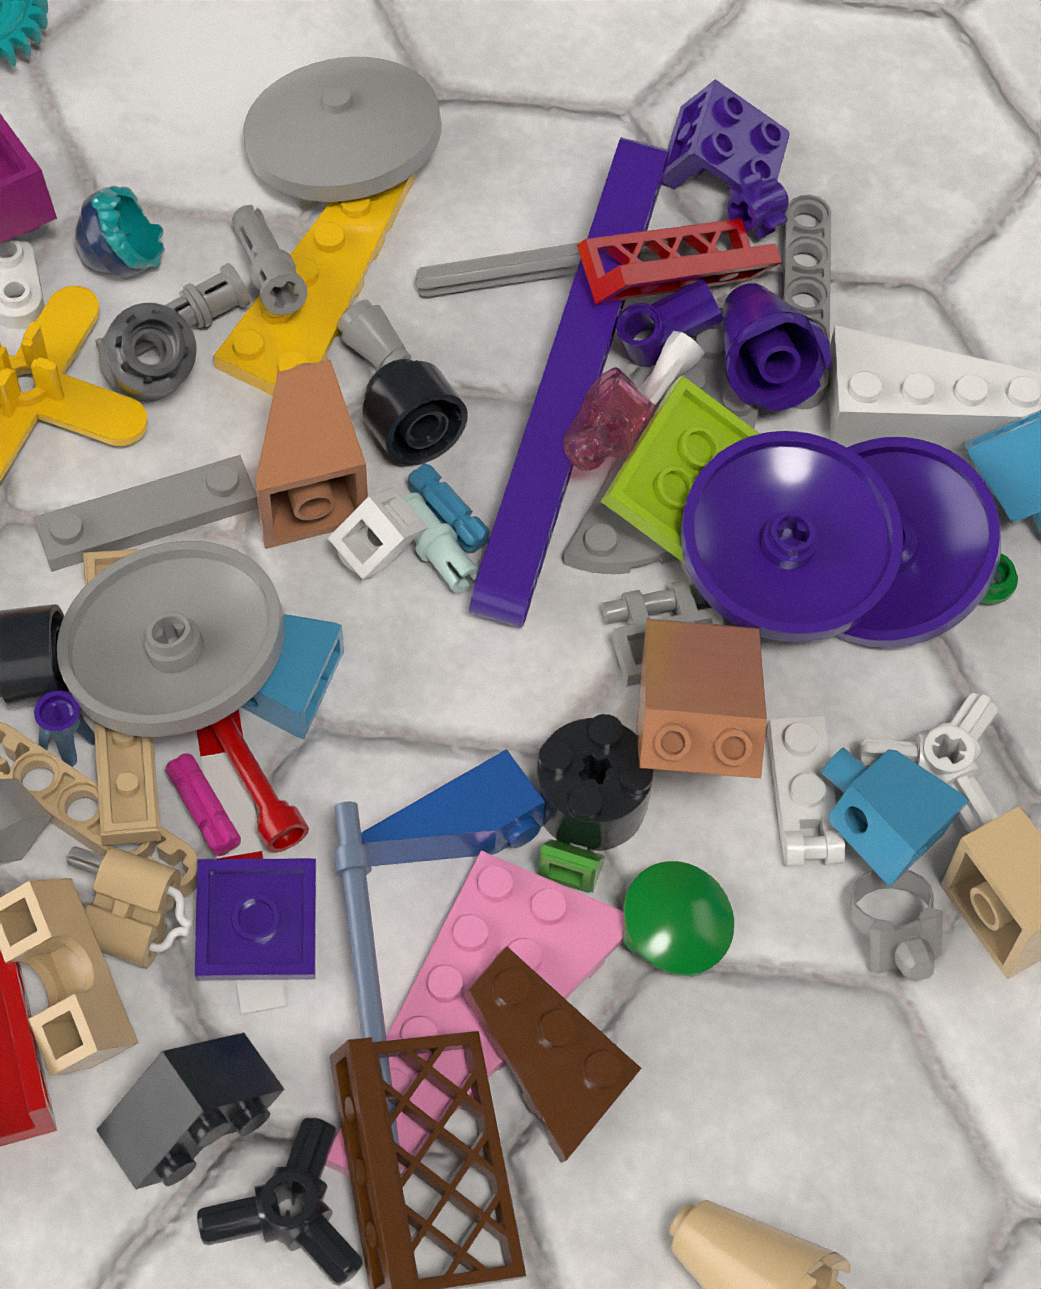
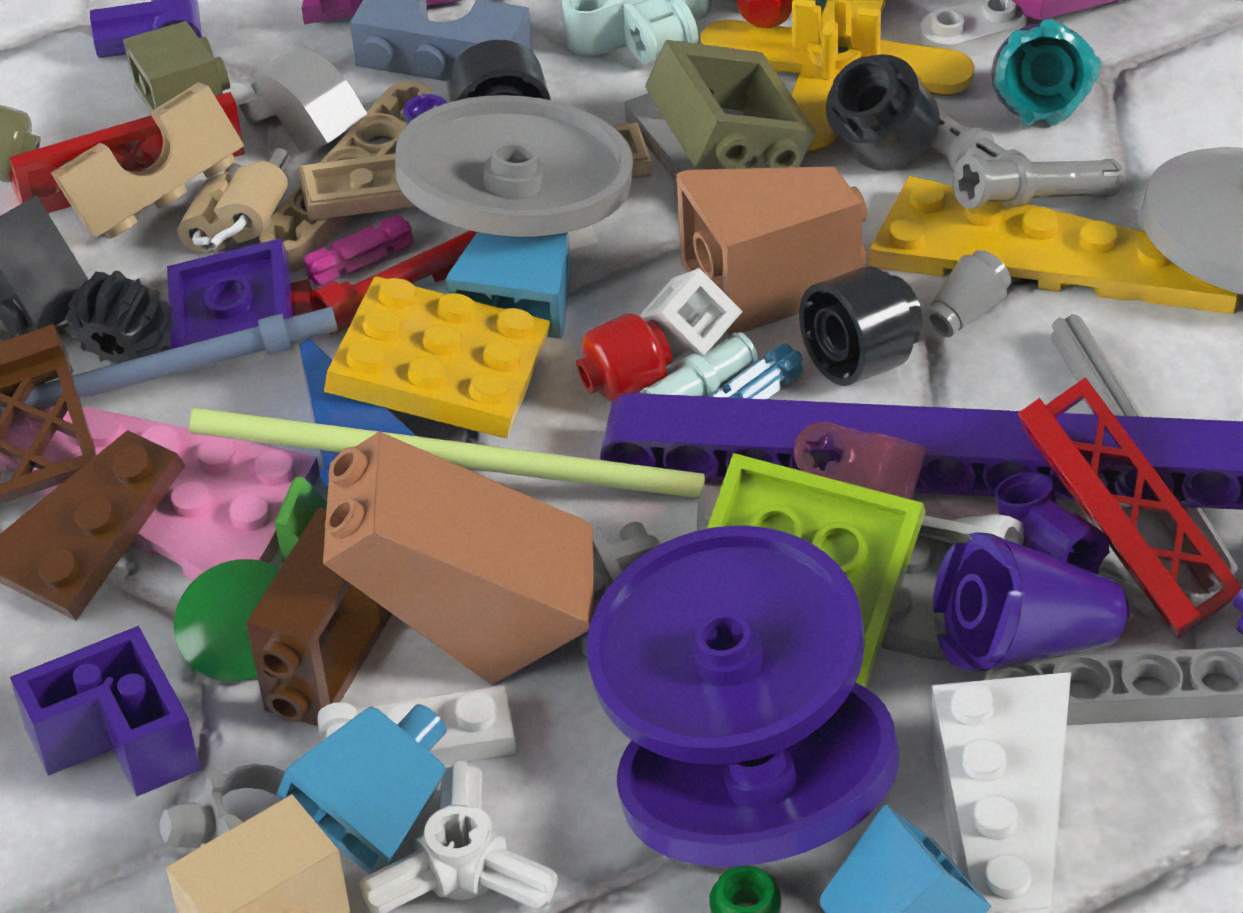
camera: 90 degrees right, 15 degrees down
(115, 466) = (698, 80): none -> olive window
(288, 1008) = (119, 318): none -> black gear
(391, 733) = (438, 356): none -> yellow plate
(413, 590) = (623, 356): none -> red head
(529, 740) = (463, 454): none -> yellowish green piece
(718, 831) = (311, 632): none -> reddish brown window
(780, 1010) = (107, 701): none -> dark purple brick

